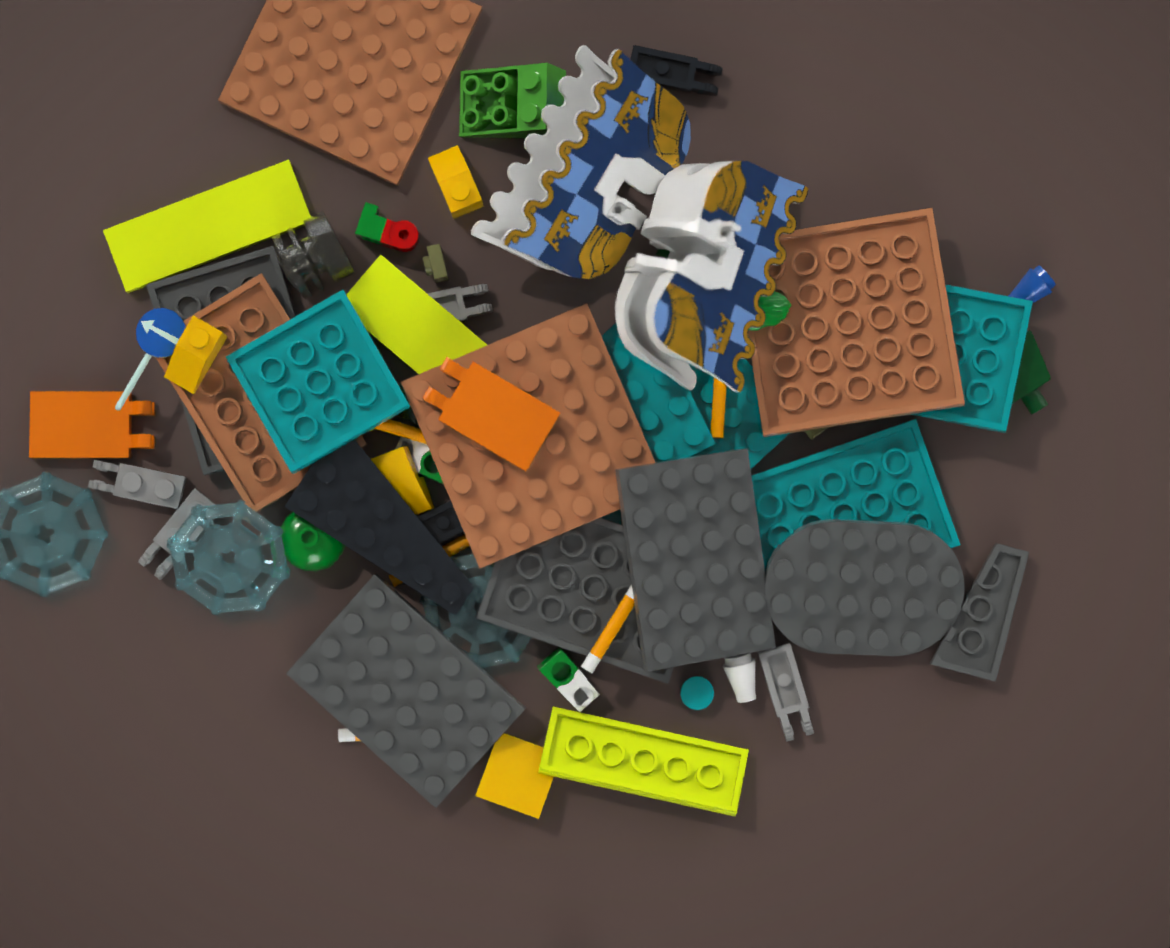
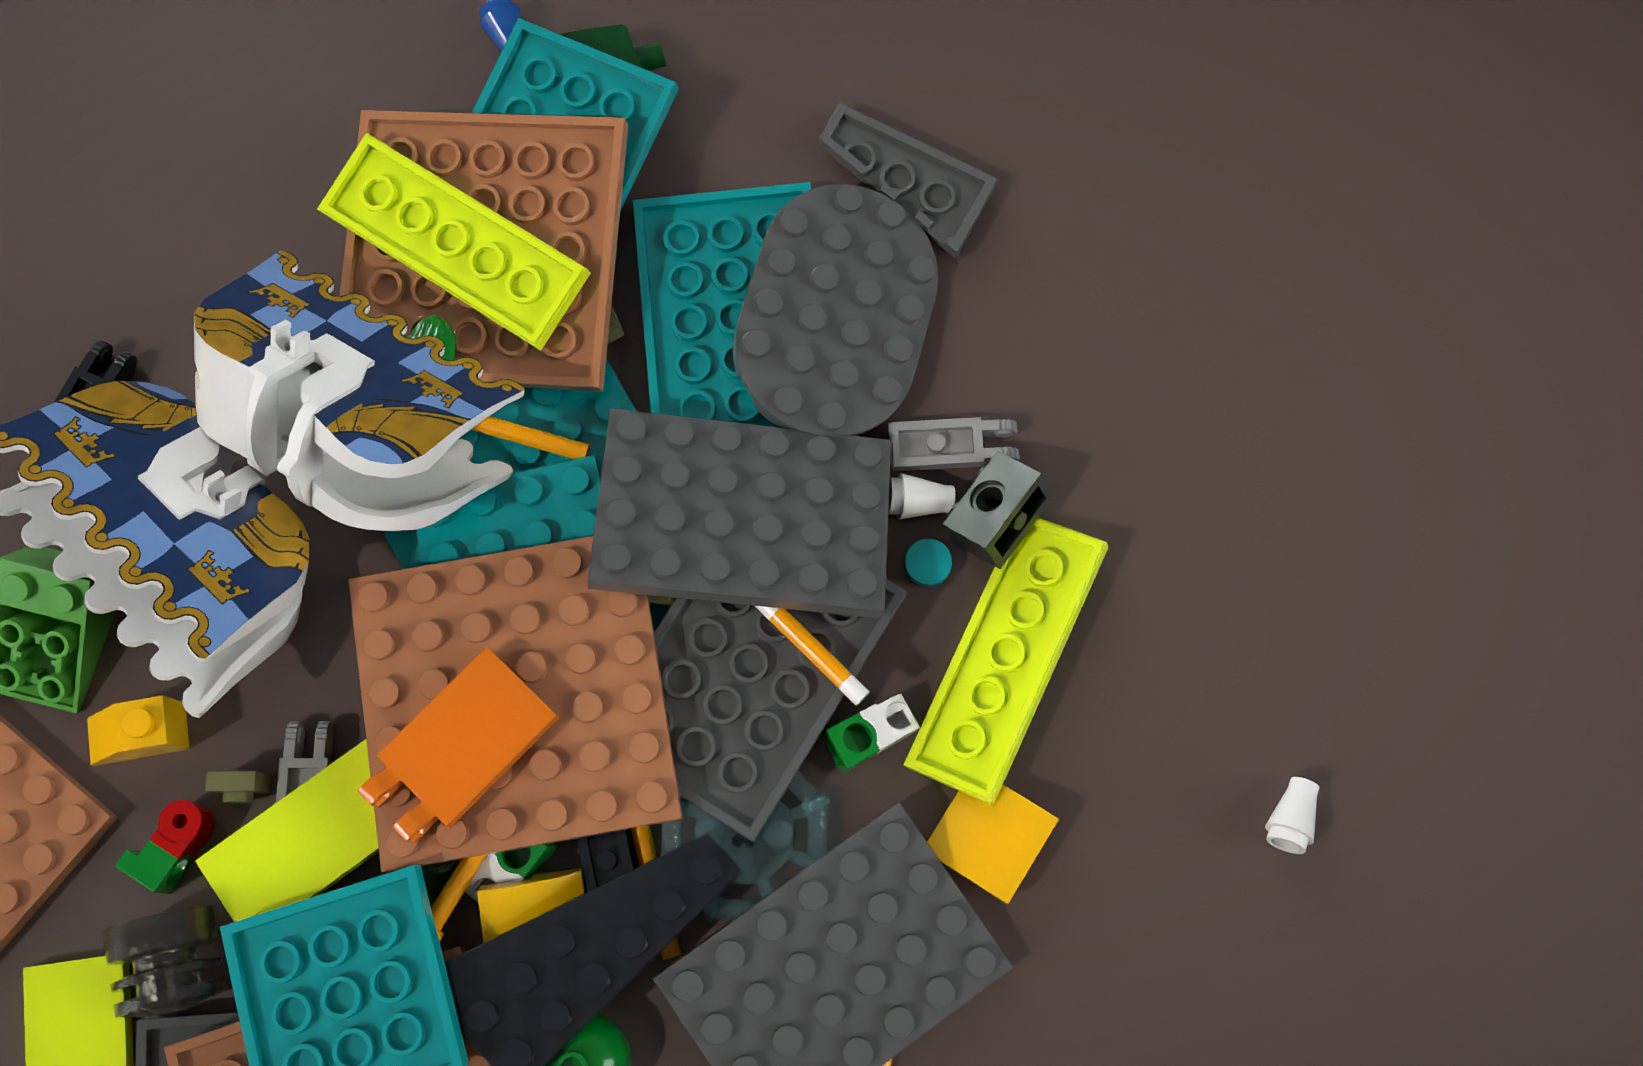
camera: 75 degrees left, 10 degrees down
(726, 738) = (997, 533): none -> pearl dark grey brick
(846, 303) = (454, 241): none -> neon yellow tile

